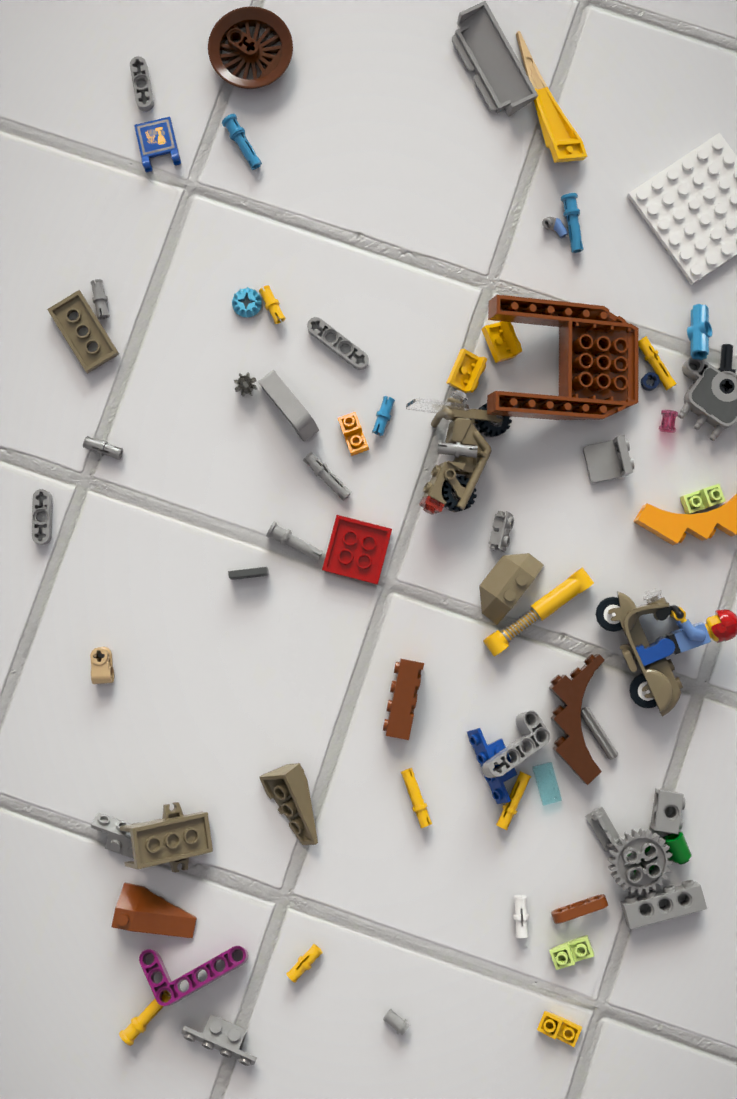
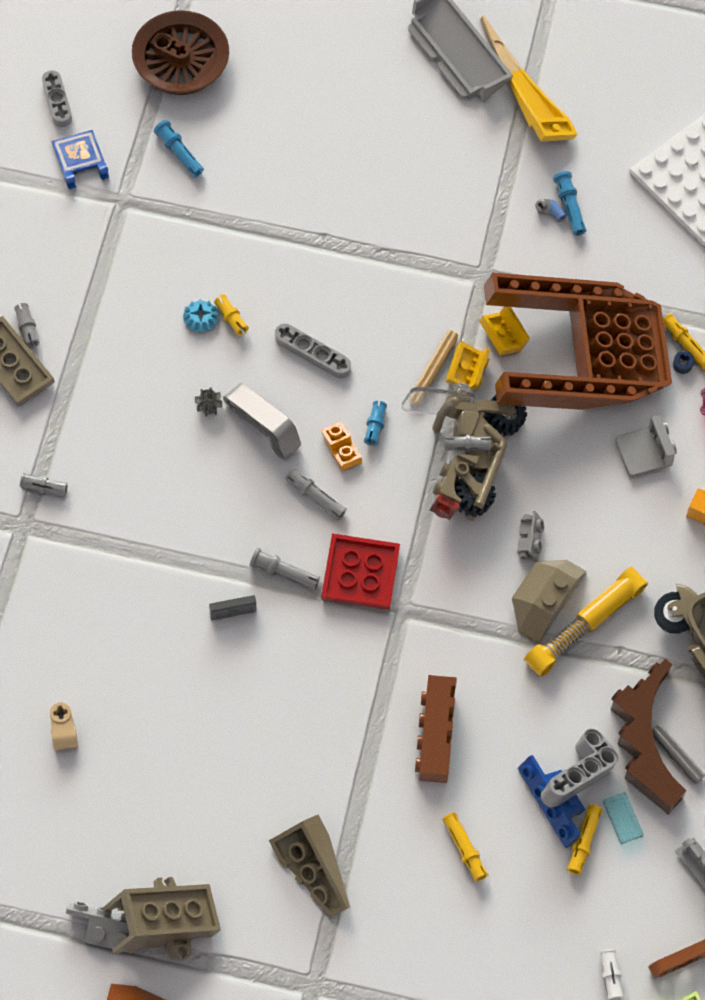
camera: 10 degrees left, 20 degrees down
(438, 367) = (438, 359): none -> tan axle

